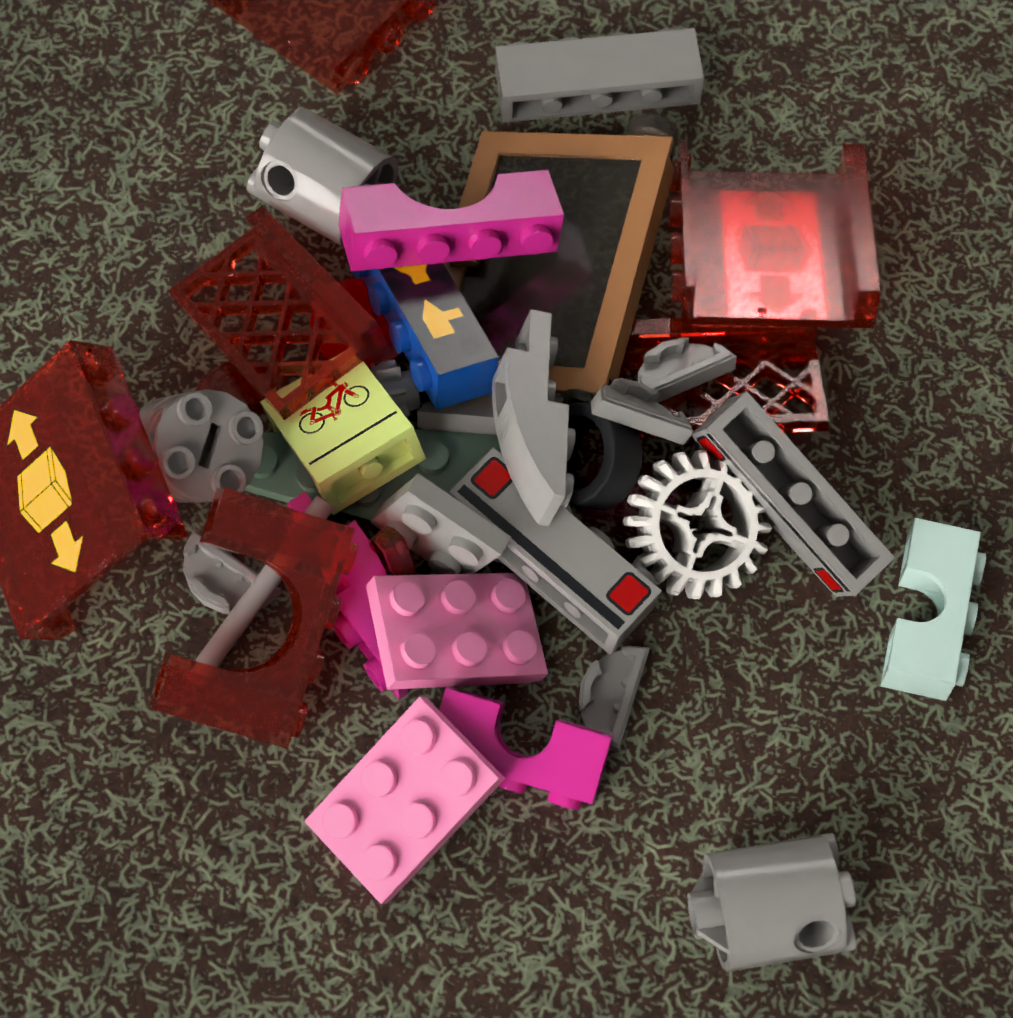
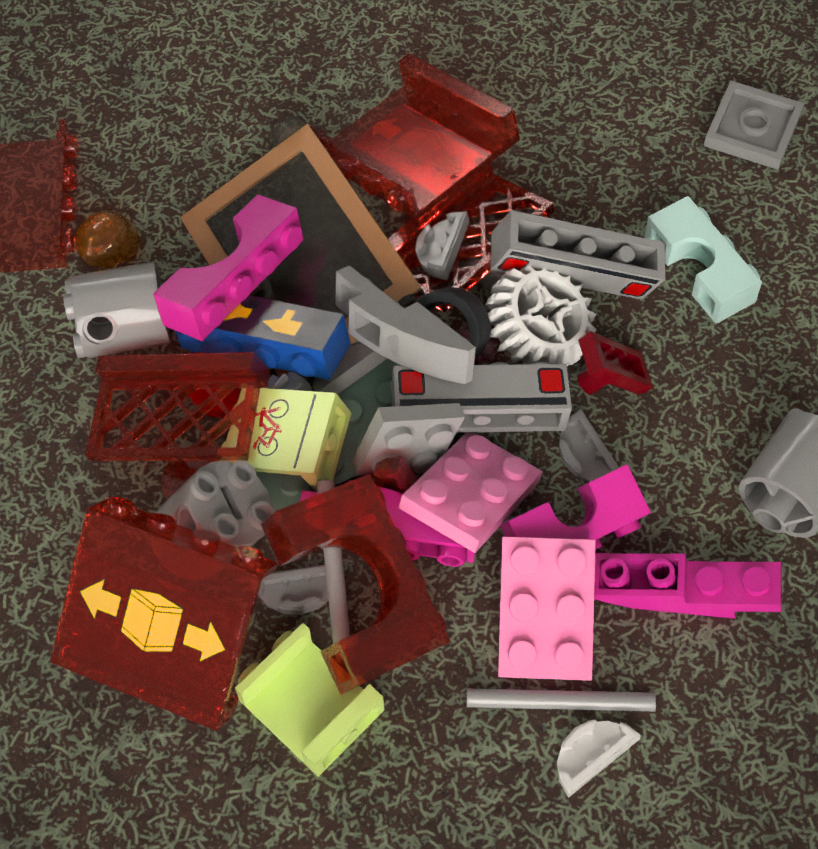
camera: 40 degrees left, 5 degrees down
(114, 681) = (301, 701): none -> yellowish green panel
(314, 963) = (590, 750): none -> white tile
(339, 895) = (561, 699): none -> light grey bar
(394, 98) = (107, 239): none -> clear orange hair
(558, 902) = (686, 586): none -> dark pink slope
(598, 74) = (216, 134): light grey brick -> none
(636, 407) = (443, 278): light grey tile -> none
(719, 634) = (612, 364): none -> dark red tile

